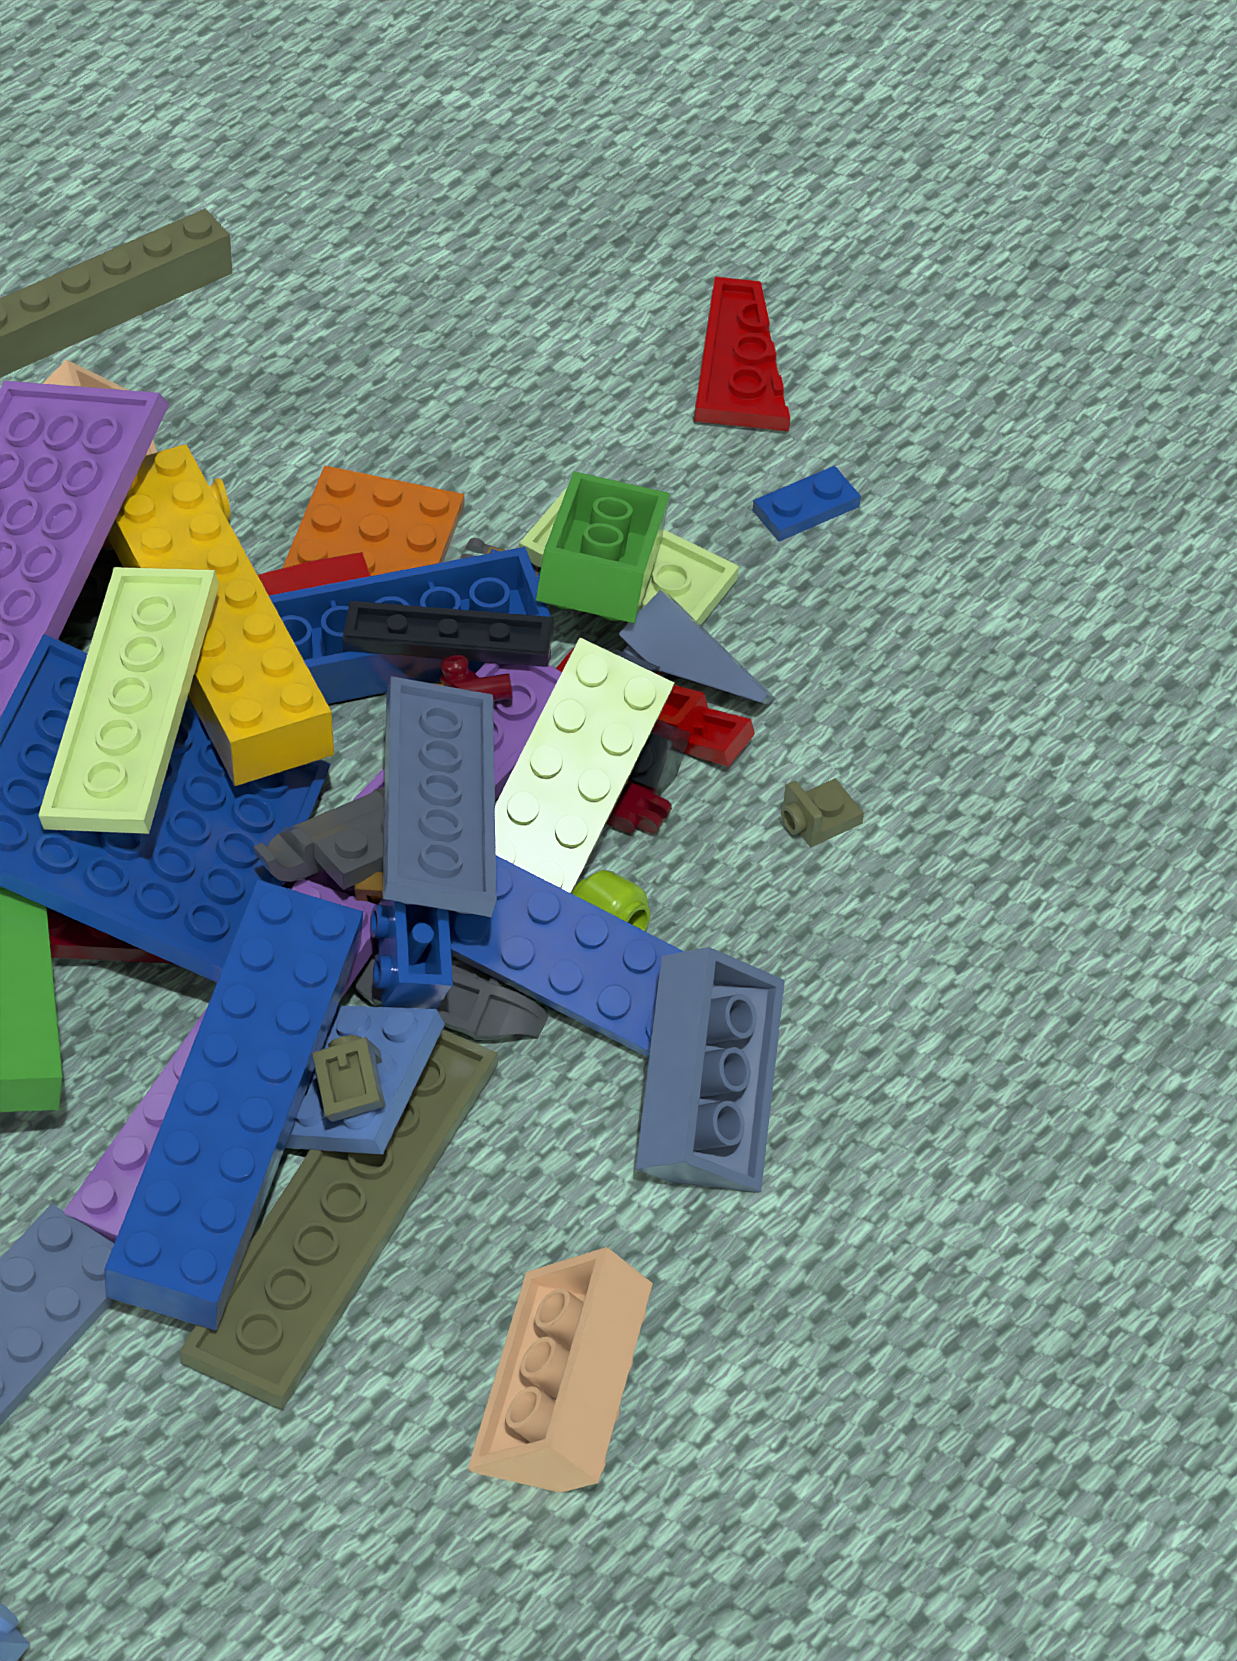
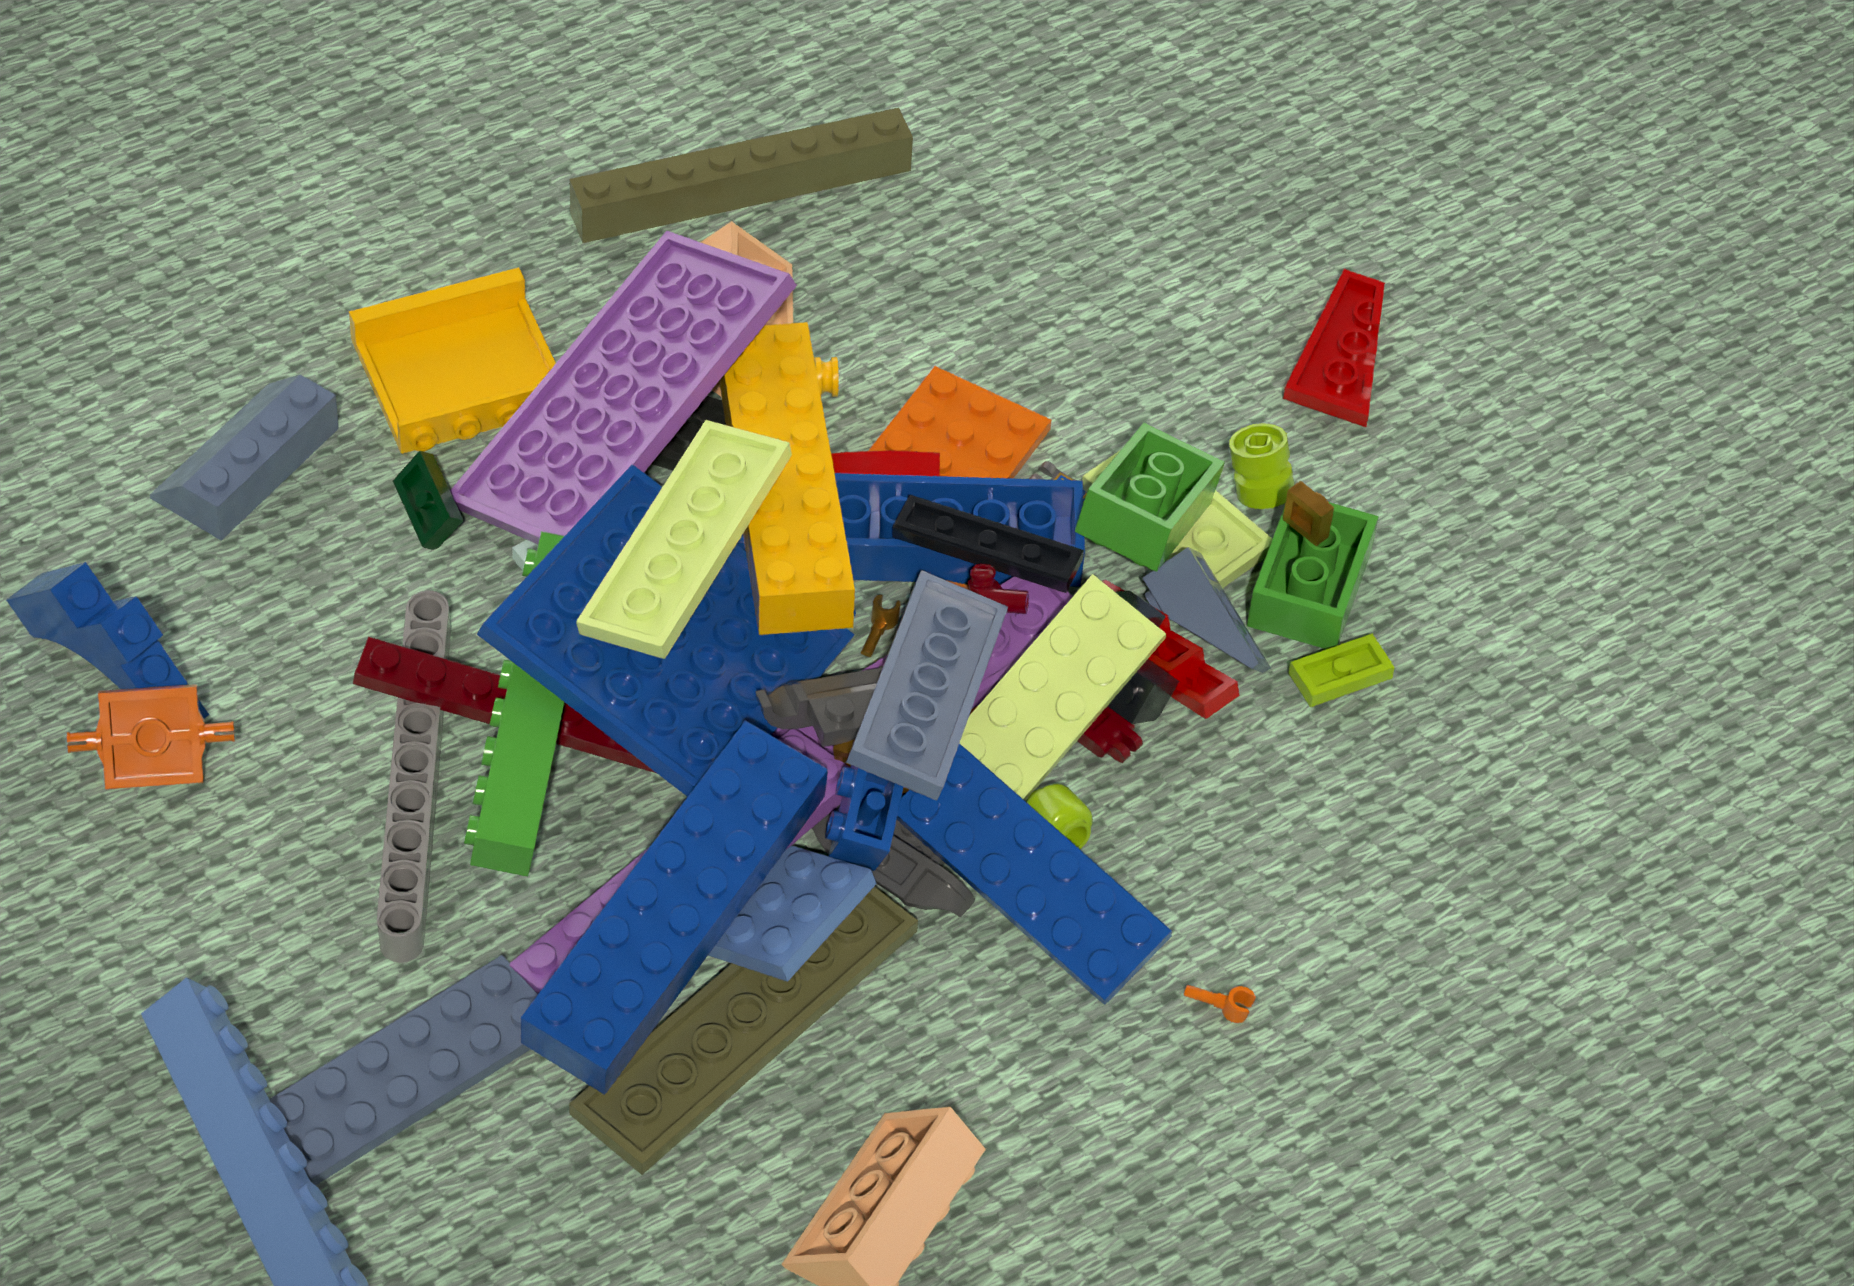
camera: 15 degrees right, 0 degrees up
(349, 1077) = (775, 908): olive bracket -> none
(352, 742) = (882, 620): none -> pearl gold hand
(701, 492) = (1261, 465): none -> lime wheel
(710, 1071) = (1094, 981): sand blue slope -> none
(774, 526) = (1308, 513): none -> pearl gold plate
(790, 588) = (1312, 588): none -> bright green brick
(806, 503) = (1373, 493): blue plate -> none
(819, 811) = (1274, 778): olive bracket -> none
(850, 683) = (1341, 670): none -> lime plate
(851, 1060) = (1227, 1003): none -> orange hand

